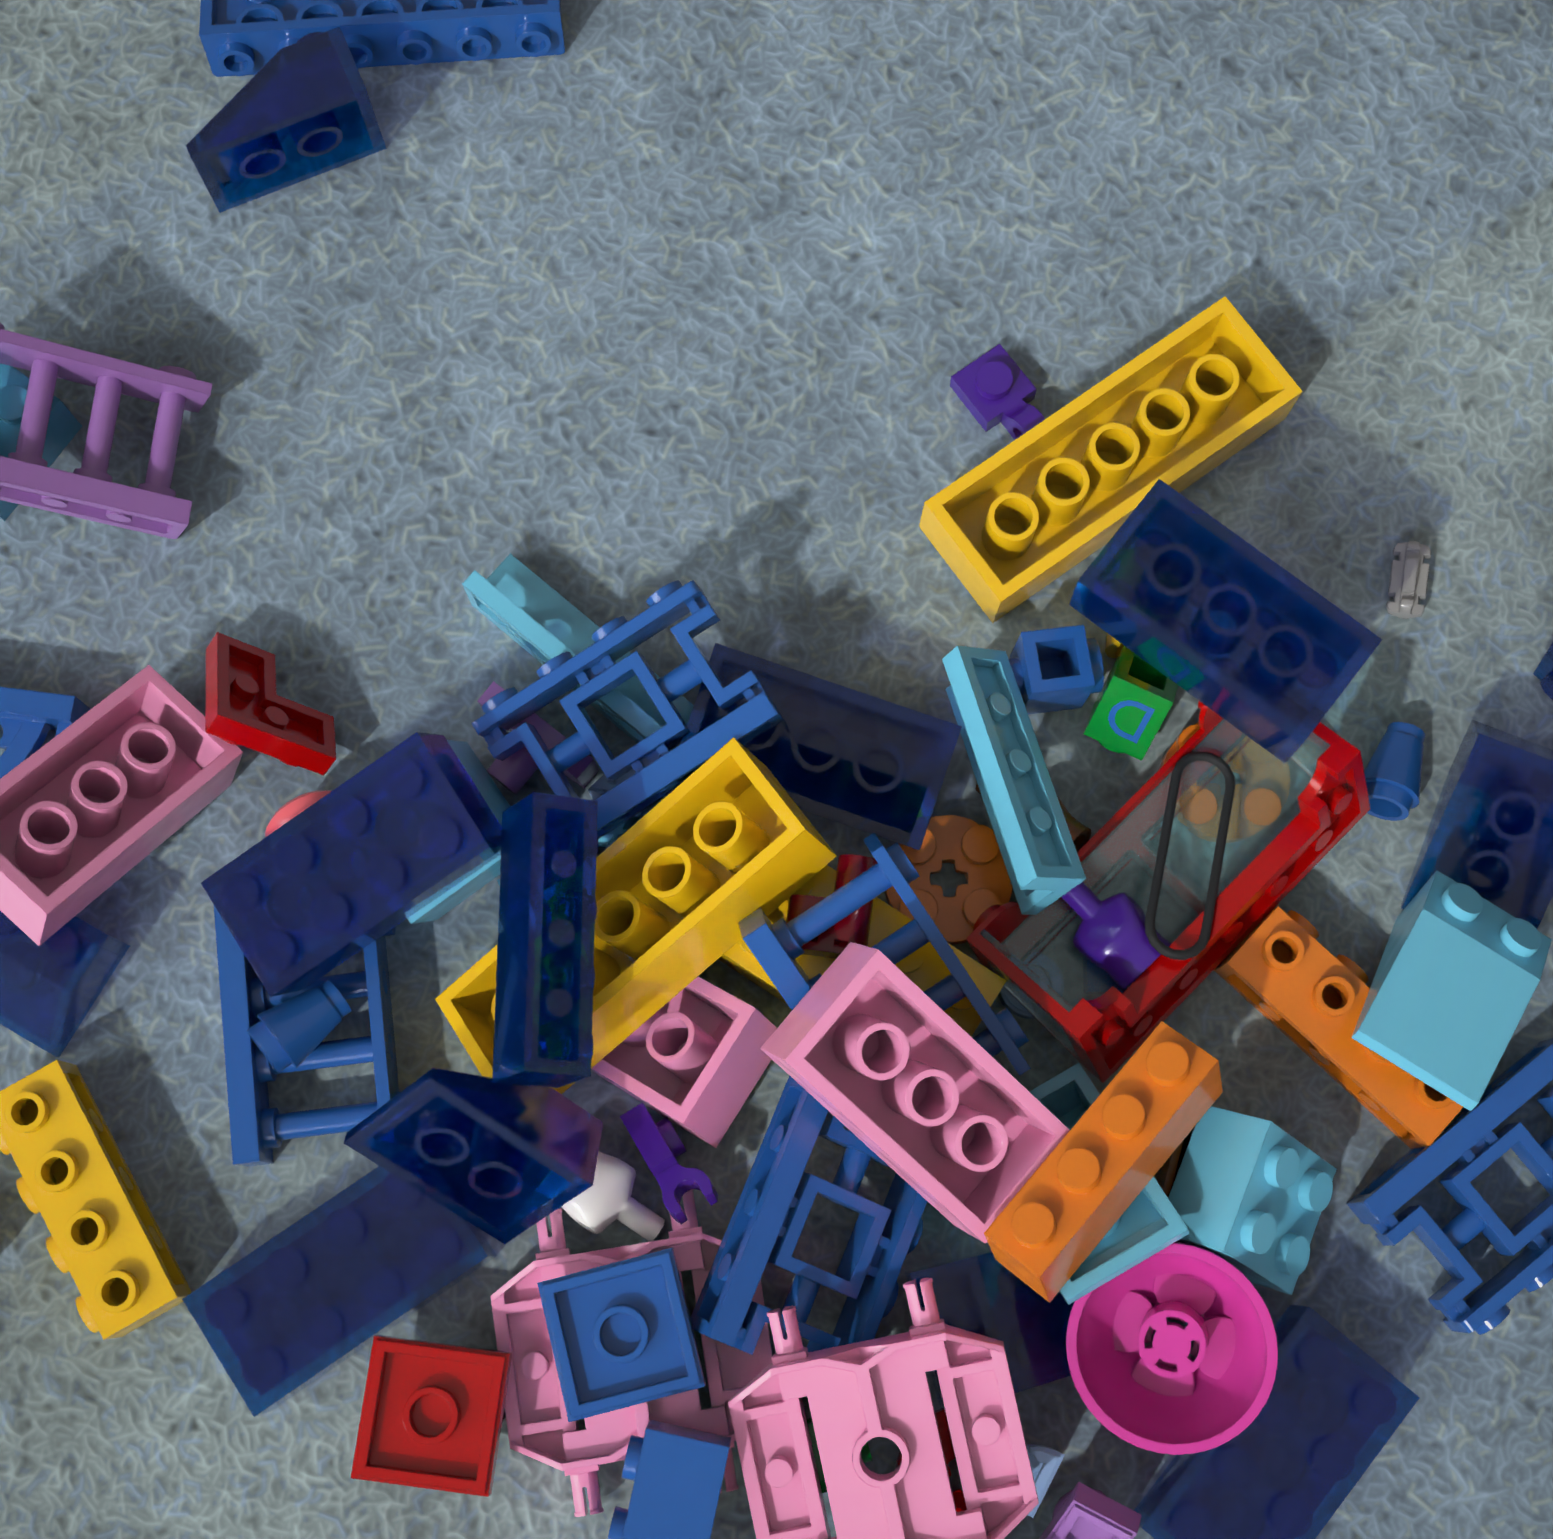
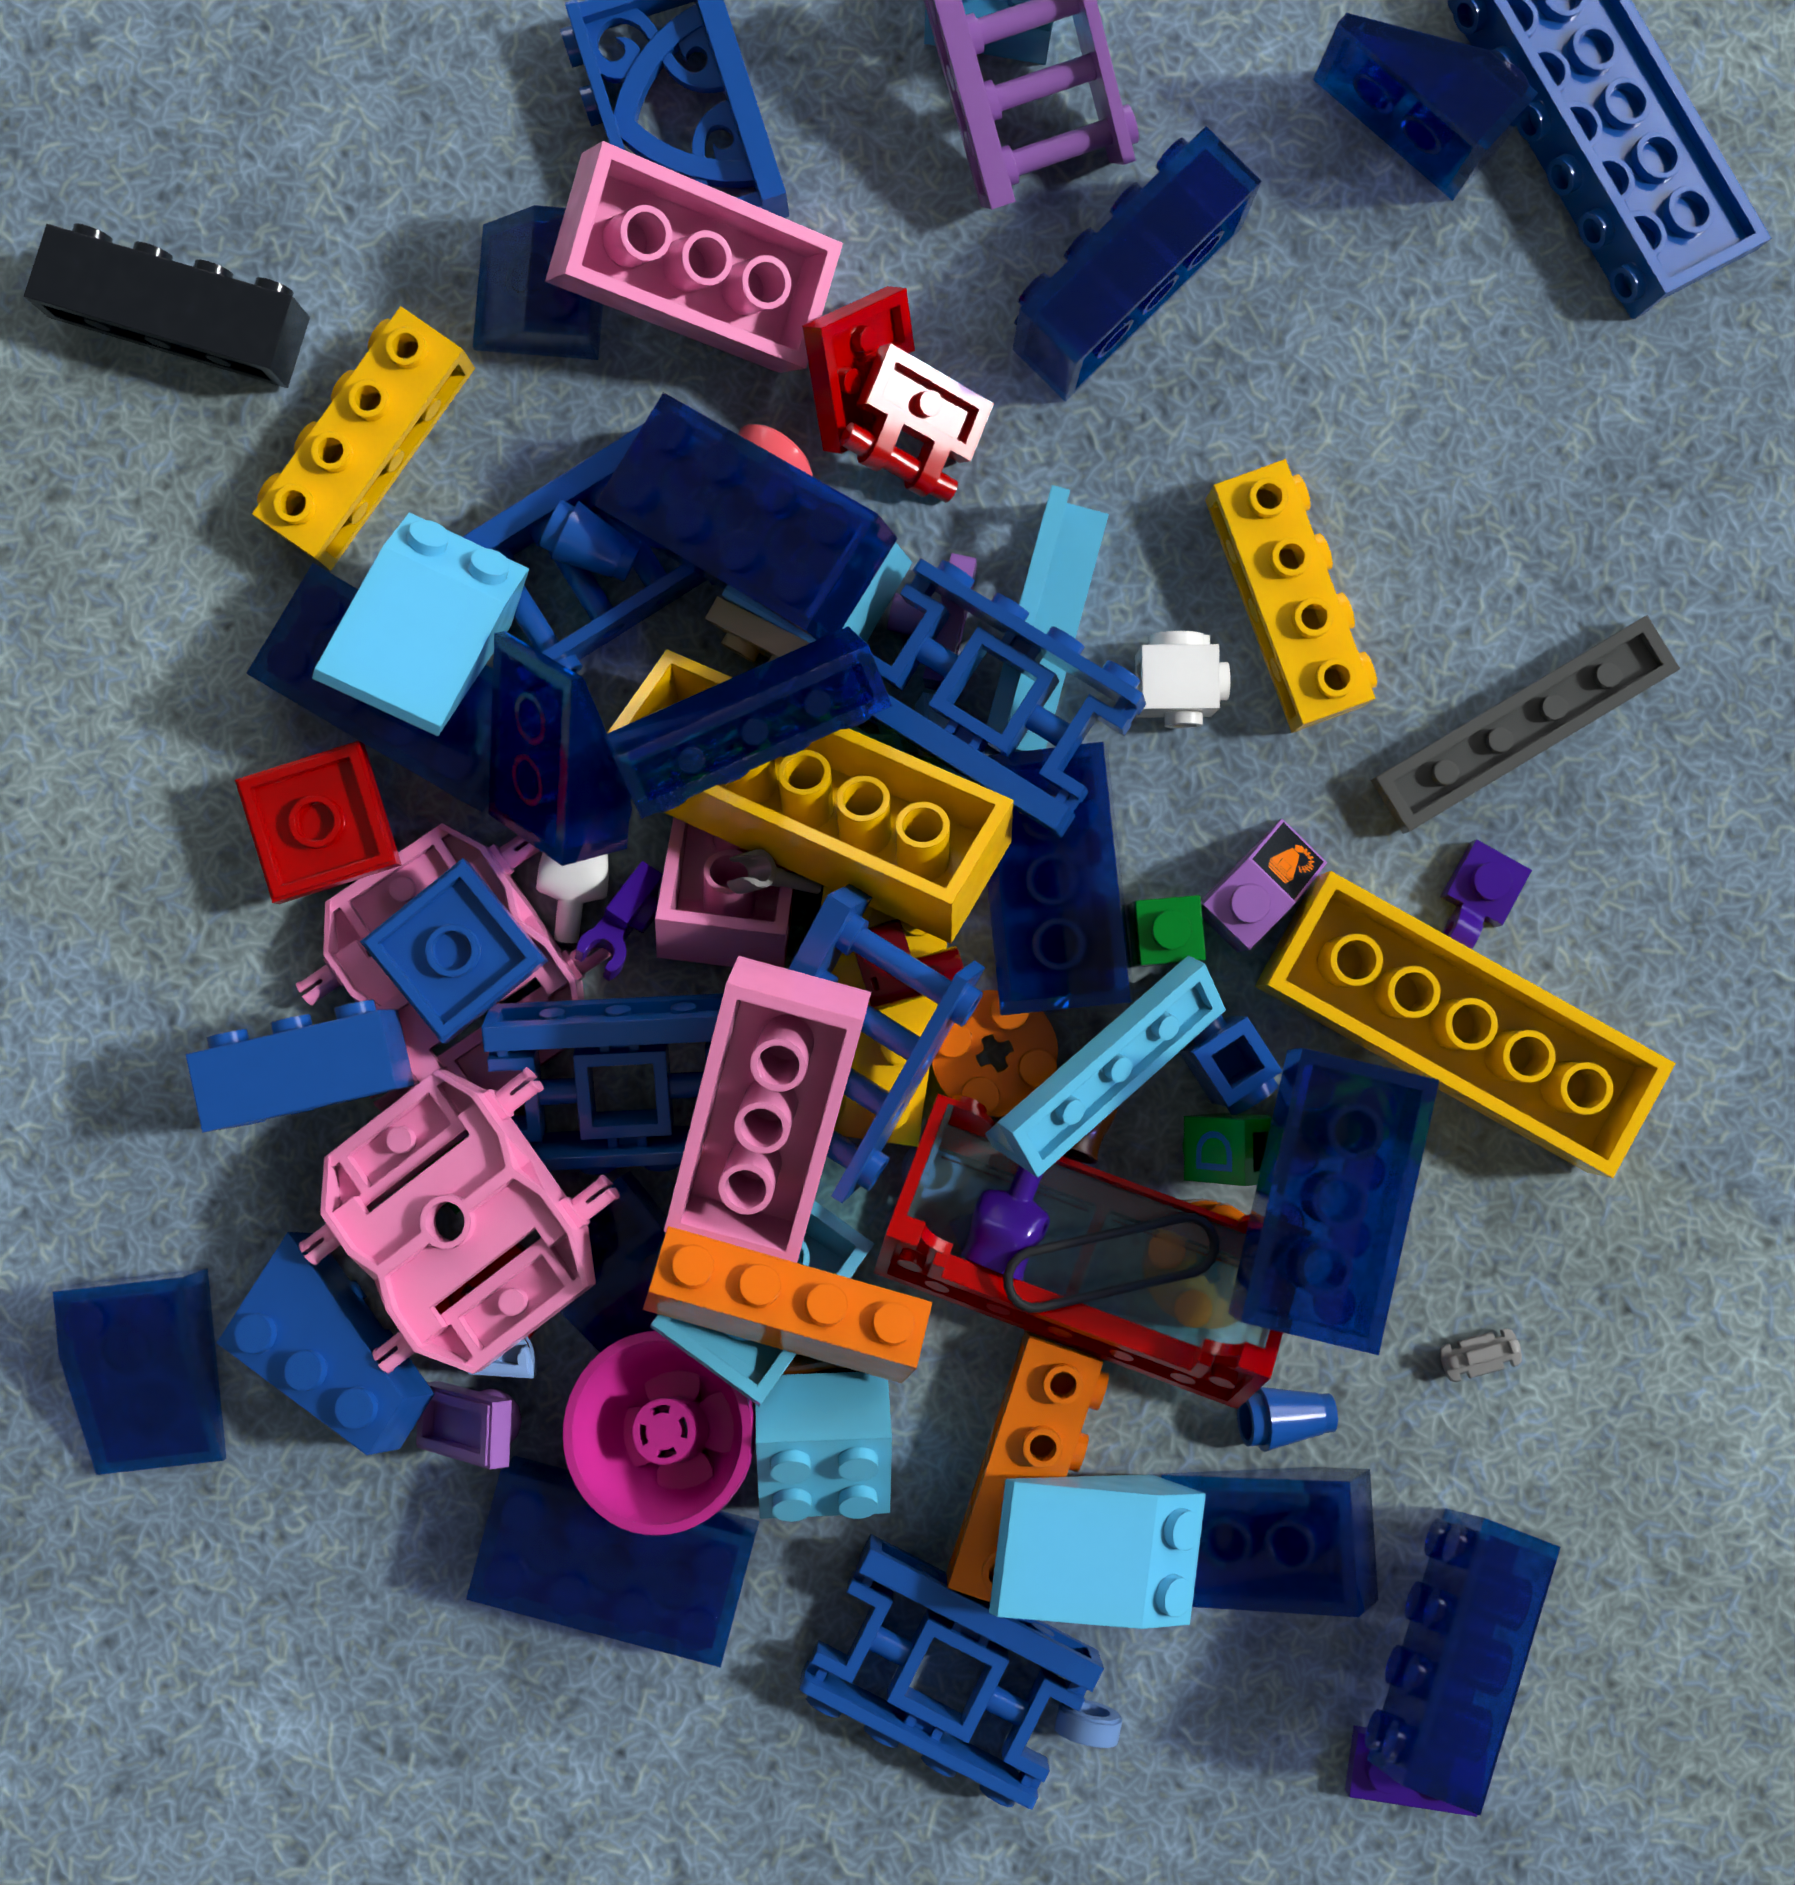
camera: 65 degrees right, 10 degrees up
(298, 1213) = (422, 624): none -> medium azure slope
(300, 427) = (1133, 262): none -> clear blue brick
(330, 665) = (925, 405): none -> plate
(460, 916) = (750, 634): none -> tan plate
(661, 432) = (1291, 595): none -> yellow brick
(688, 1002) = (763, 873): none -> light grey hand
(689, 550) = (1181, 678): none -> white brick
(870, 294) = (1525, 724): none -> dark grey plate
(909, 577) = (1261, 887): none -> medium lavender slope
(909, 670) = (1166, 930): none -> green brick

